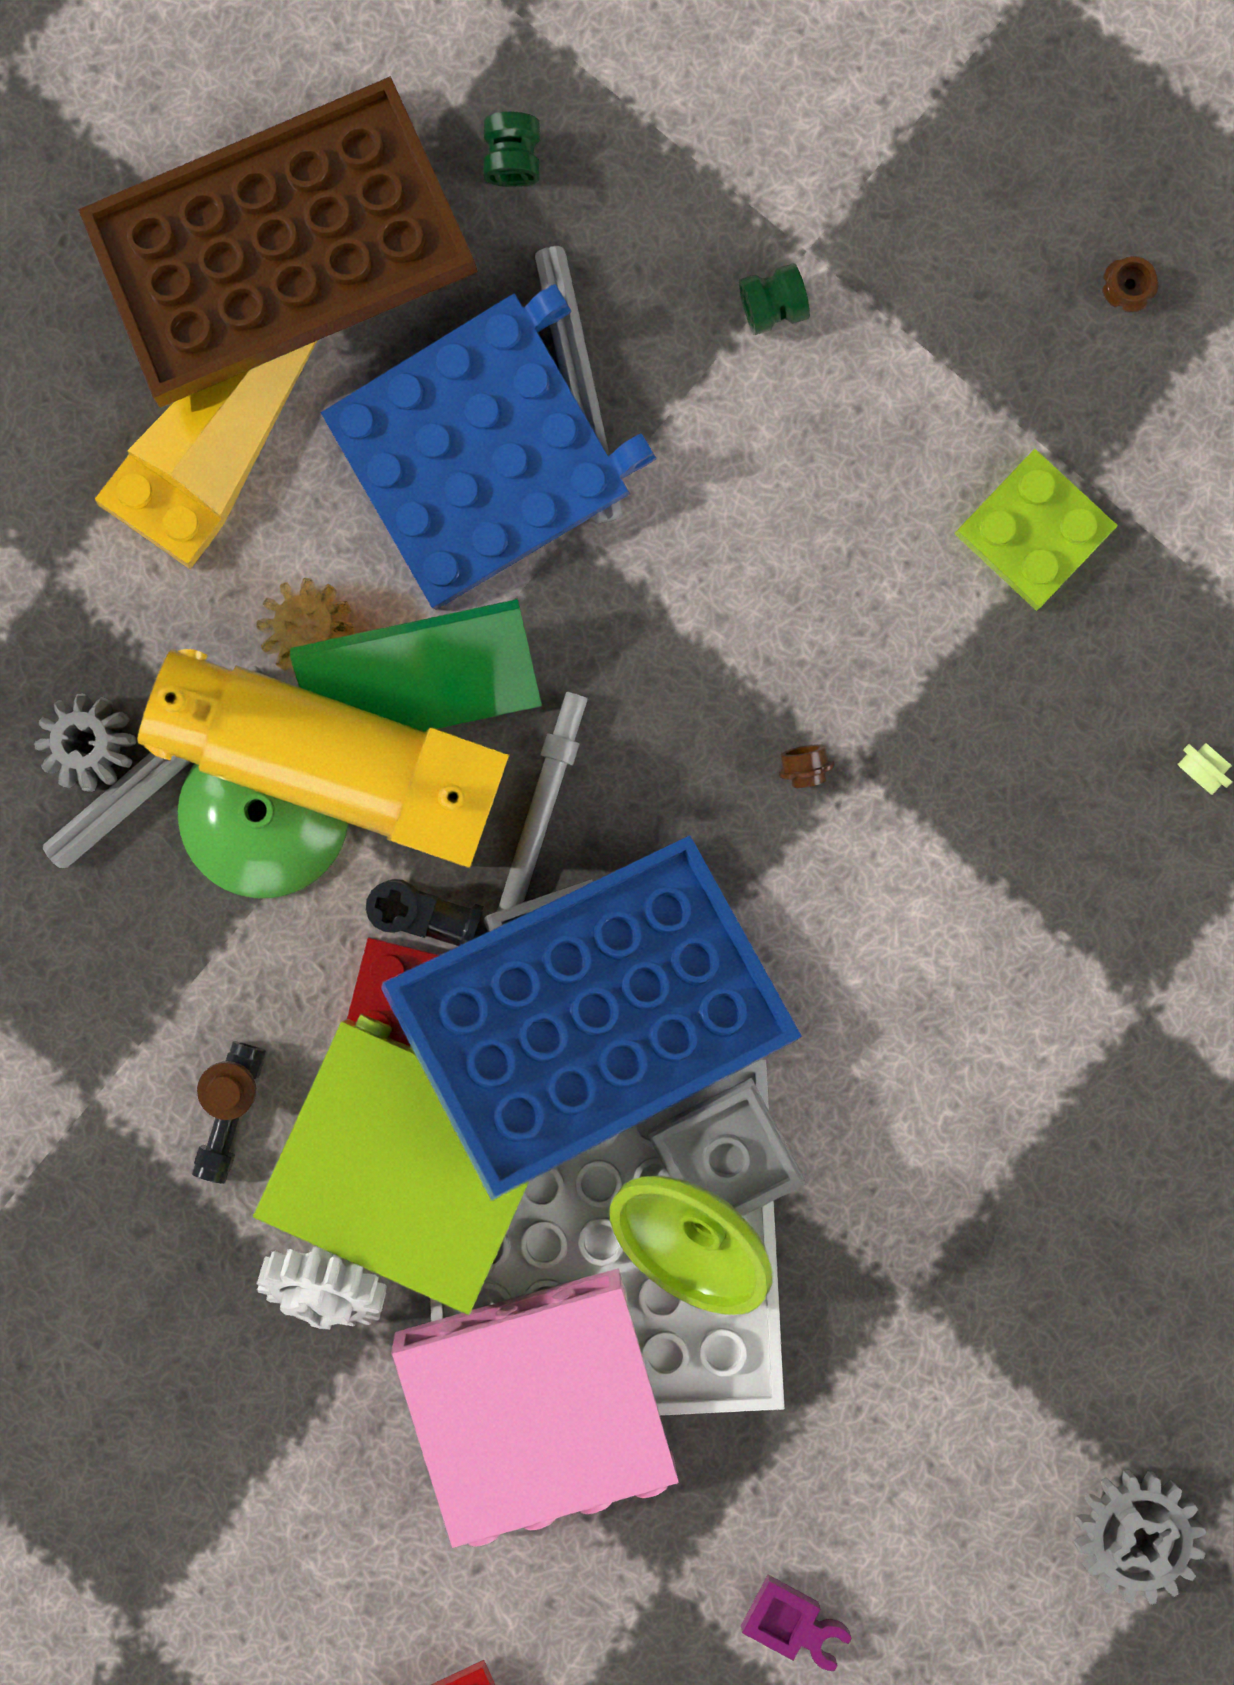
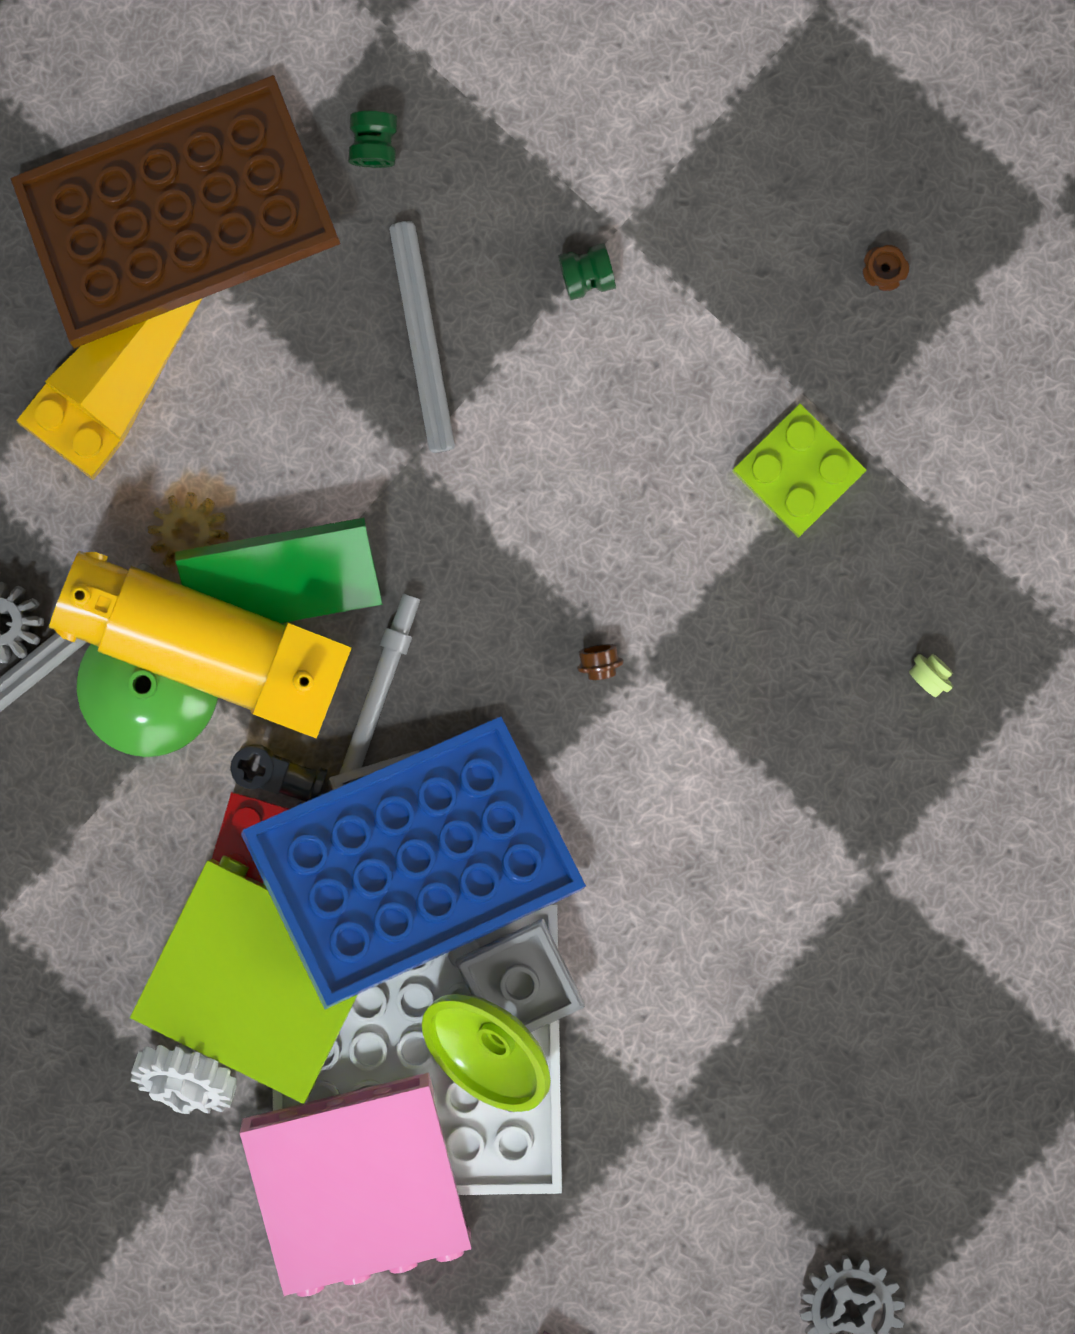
camera: 10 degrees right, 0 degrees up
(214, 1159) = (97, 972): black bar -> none
(226, 1090) = (110, 914): reddish brown plate -> none
(480, 449) = (337, 389): blue plate -> none

